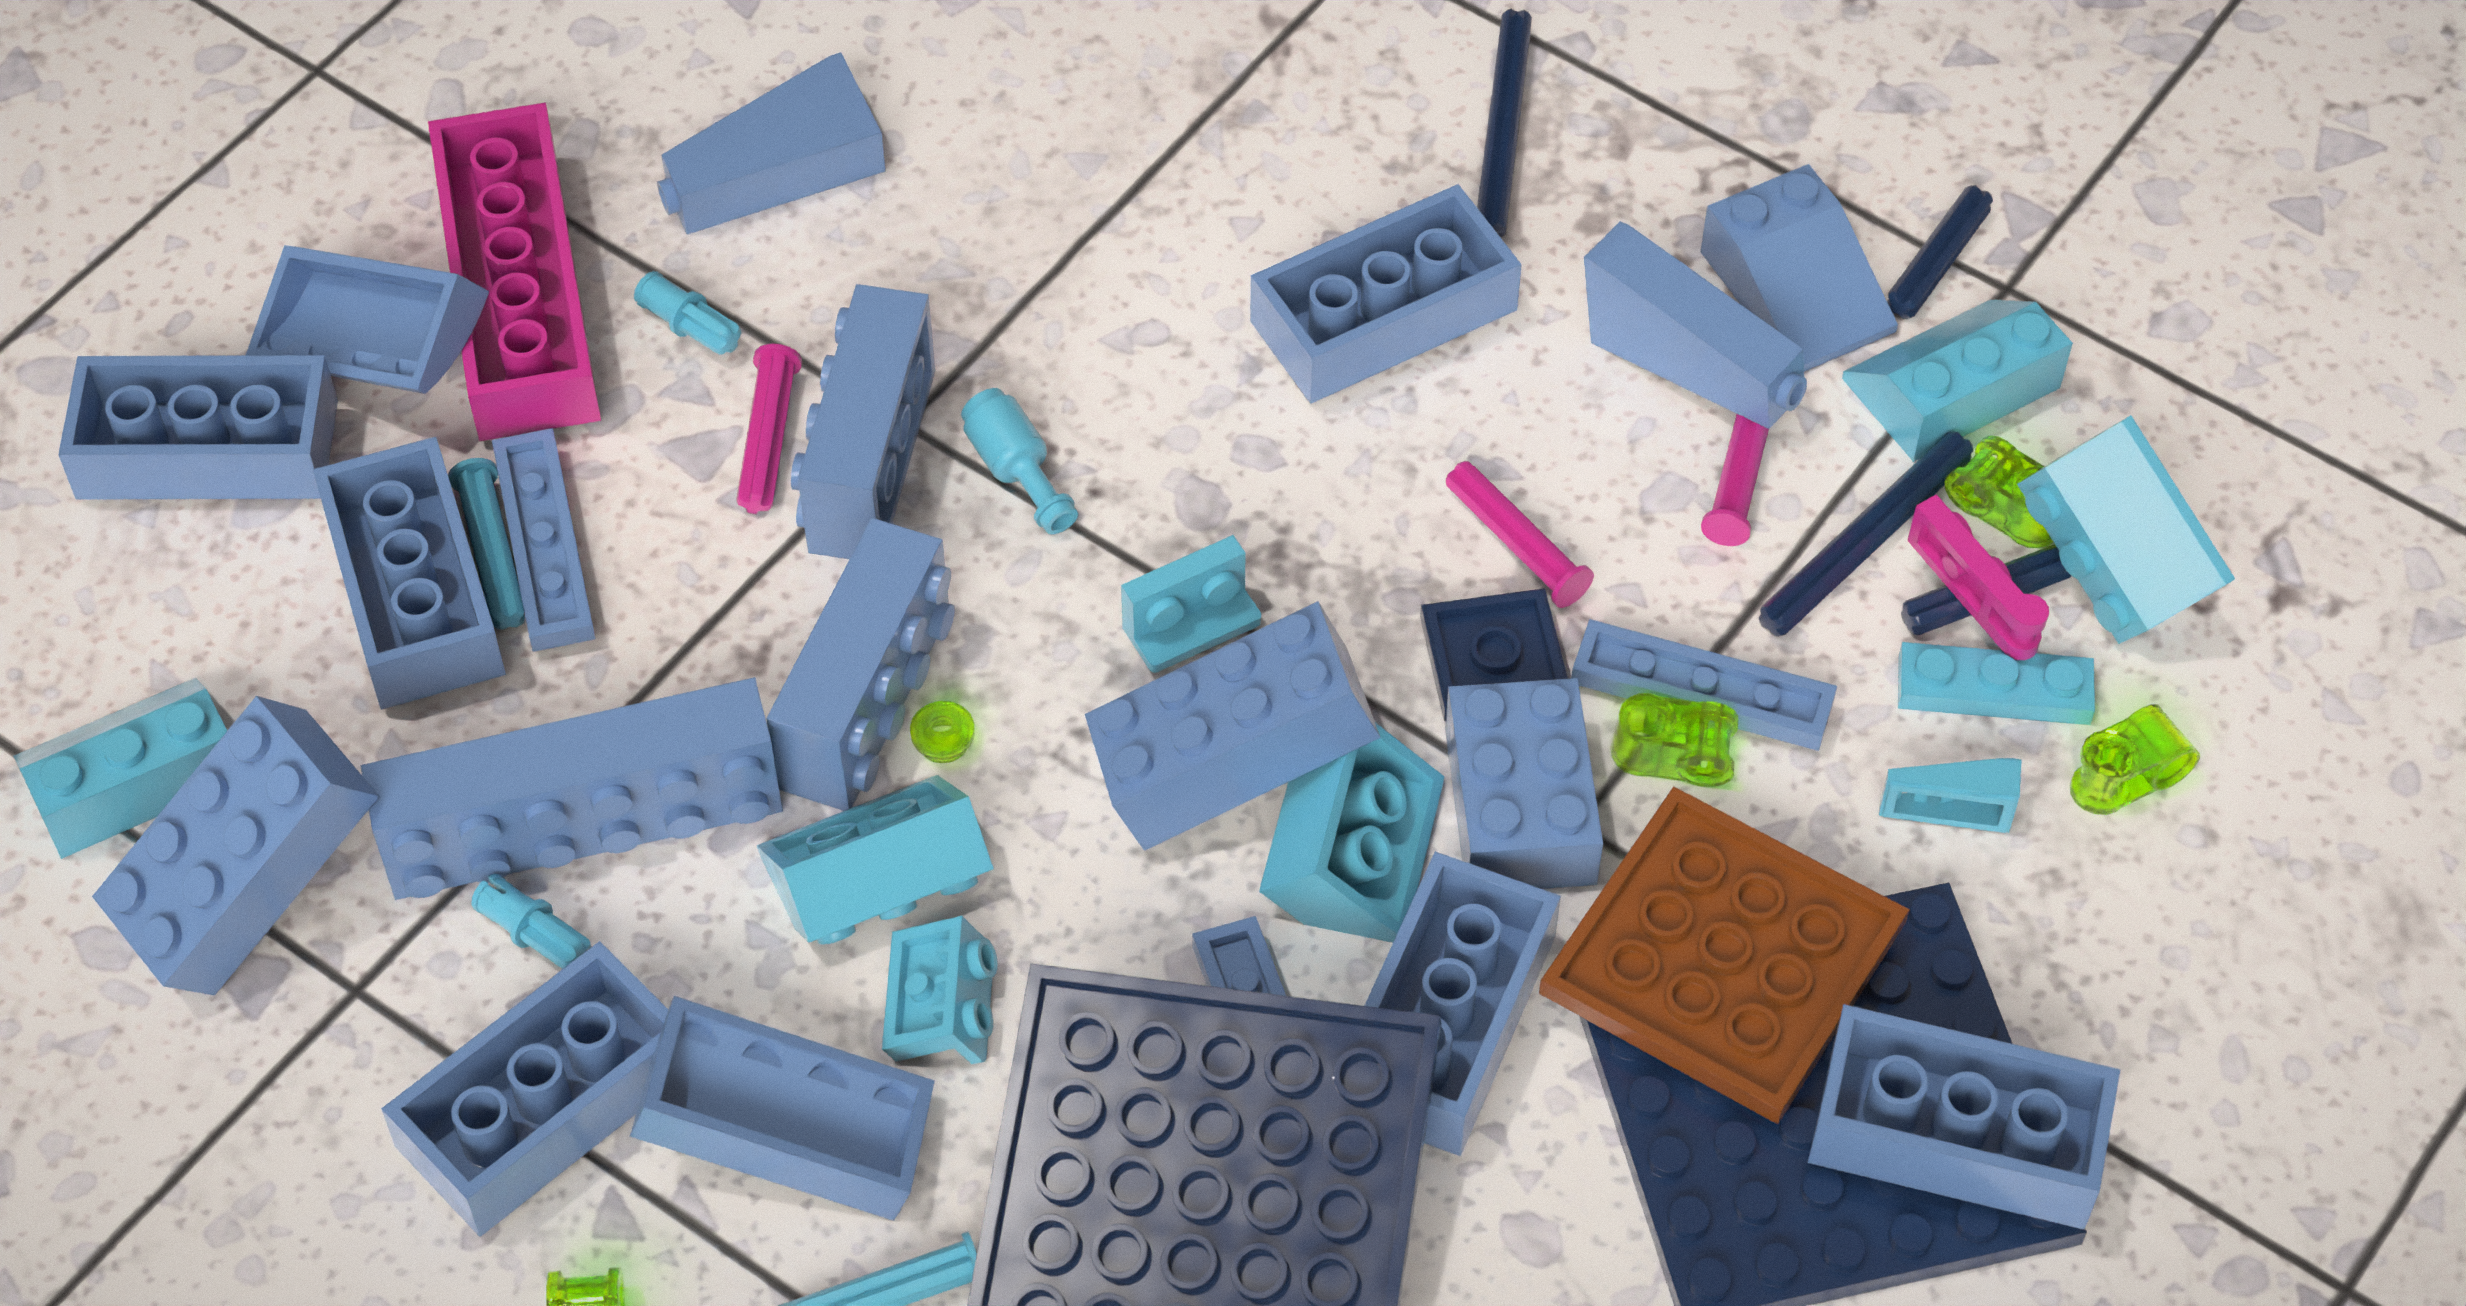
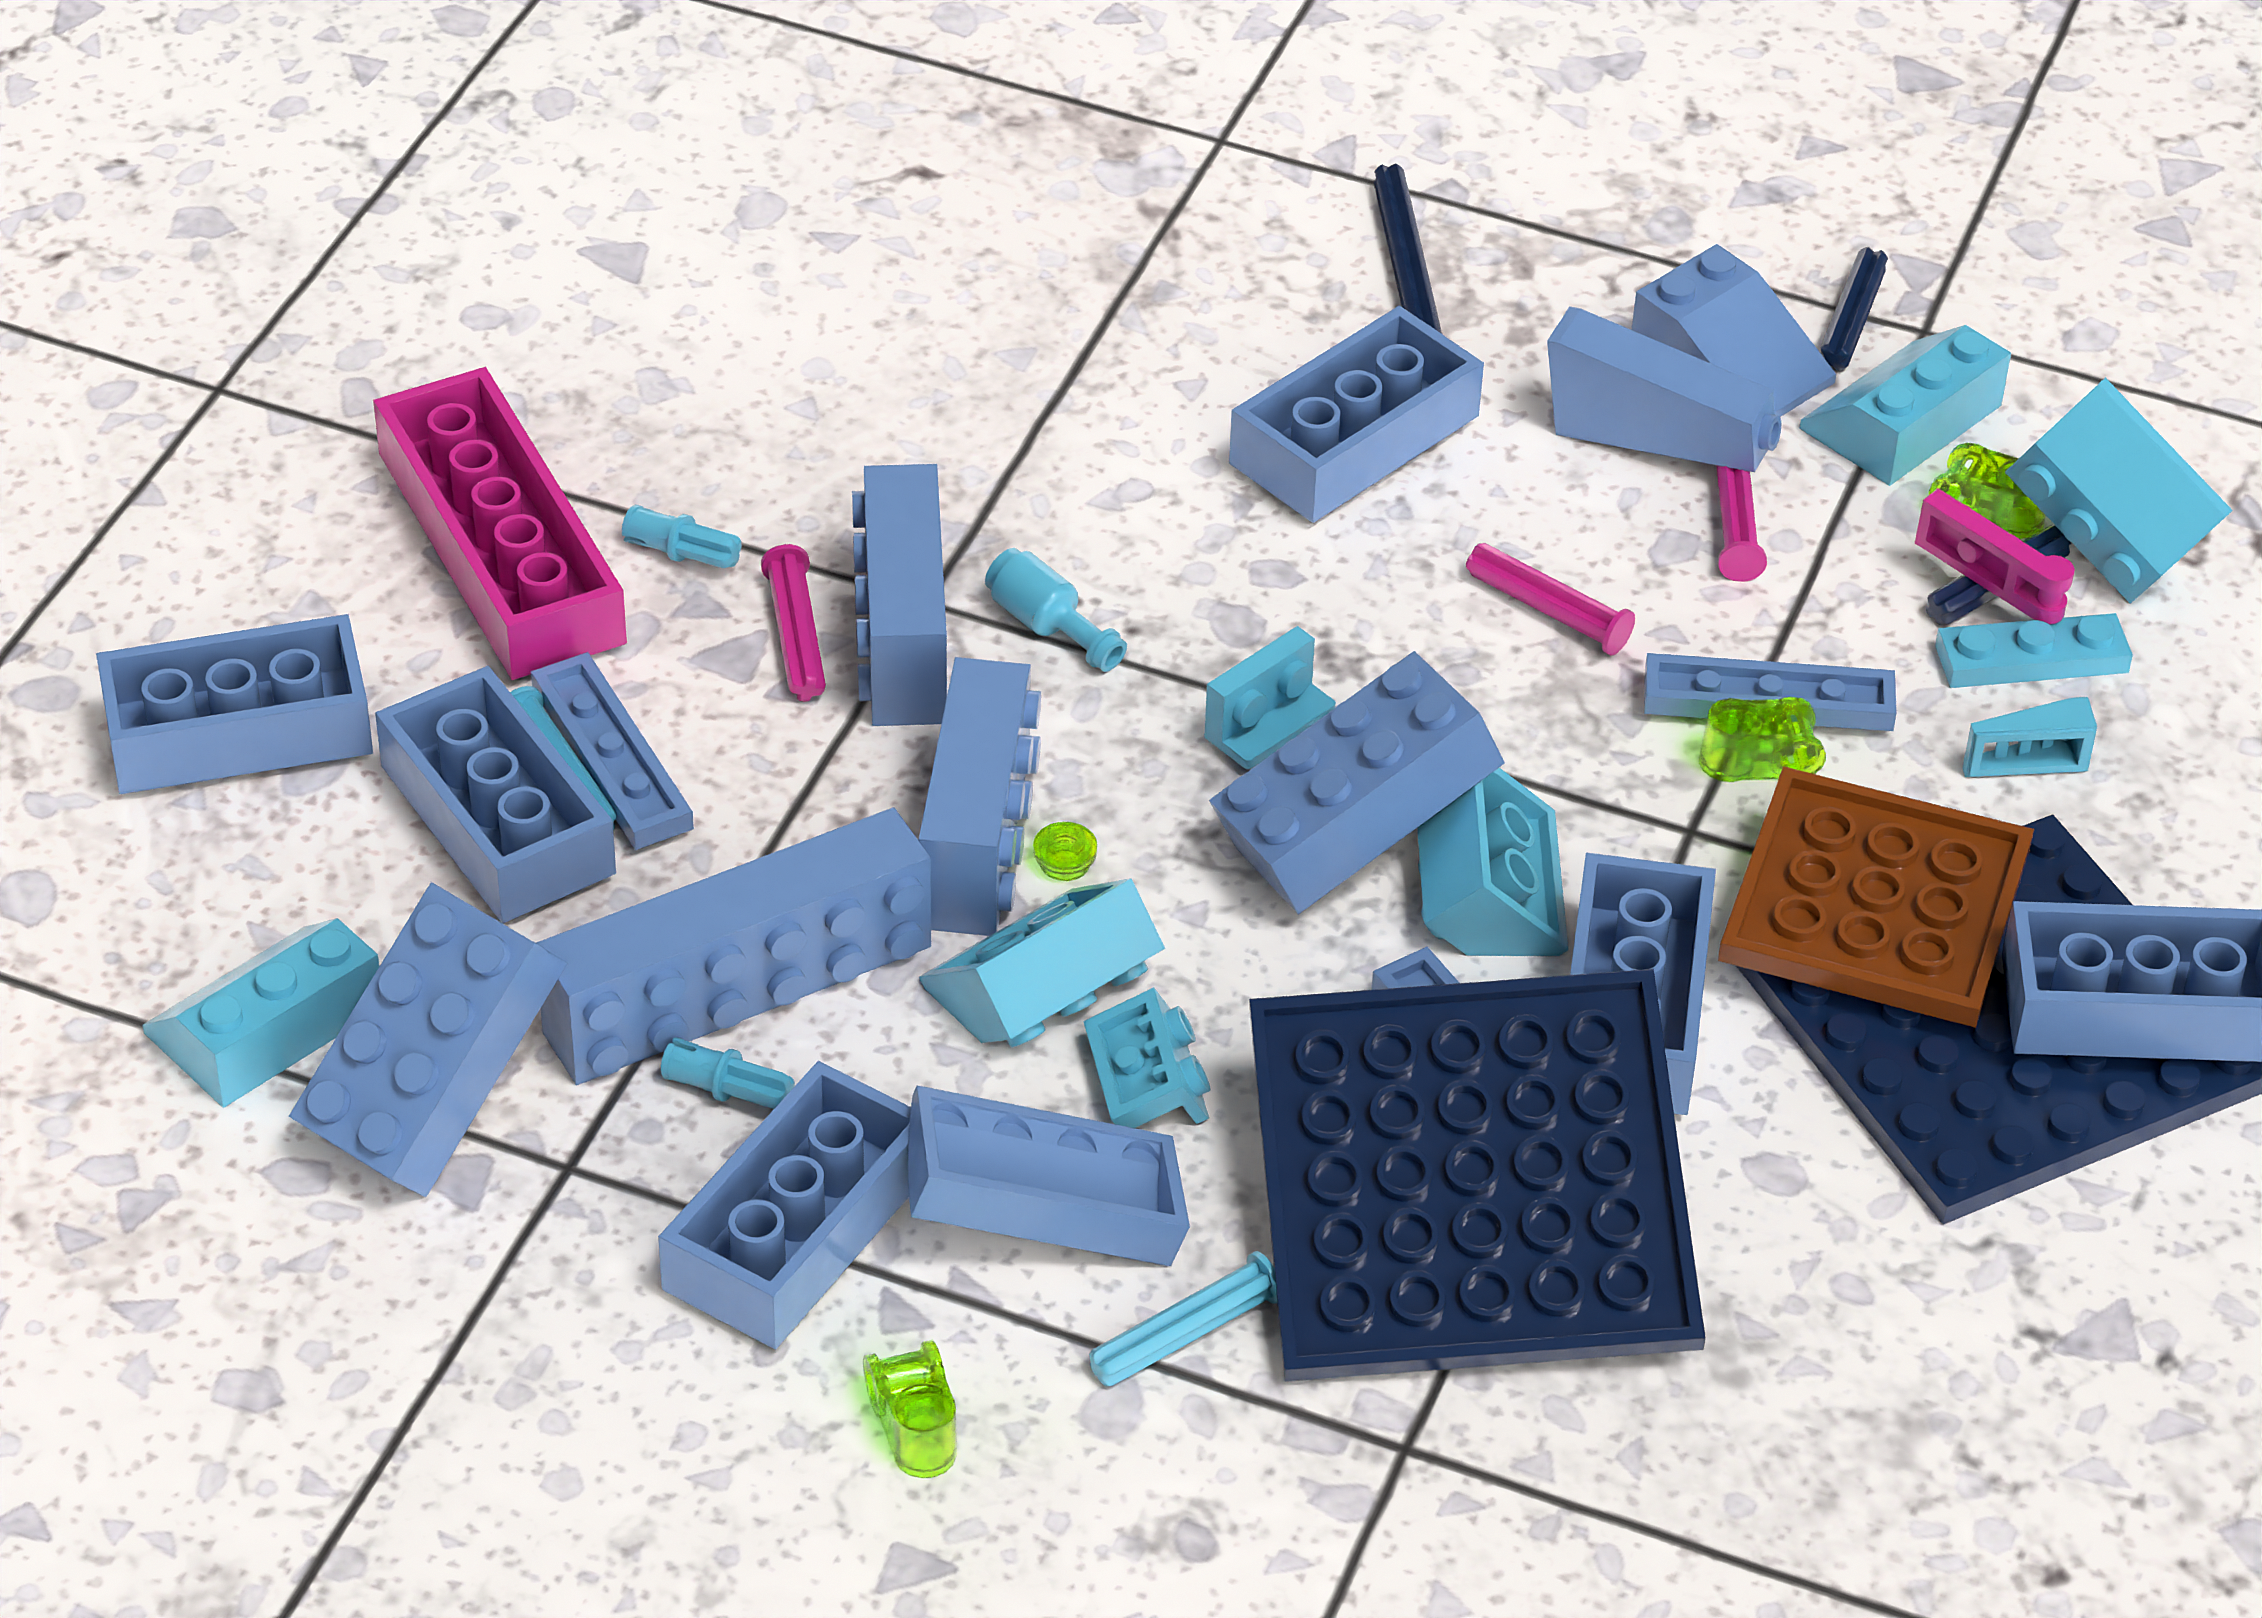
camera: 15 degrees left, 10 degrees down
(368, 317) = (384, 573): medium blue slope -> none
(775, 150) = (717, 384): medium blue slope -> none
(1491, 641) = (1567, 699): dark blue plate -> none
(1524, 781) = (1635, 786): medium blue brick -> none
(1864, 535) = (1870, 549): dark blue axle -> none
(2131, 761) = (2181, 690): clear neon green piece -> none

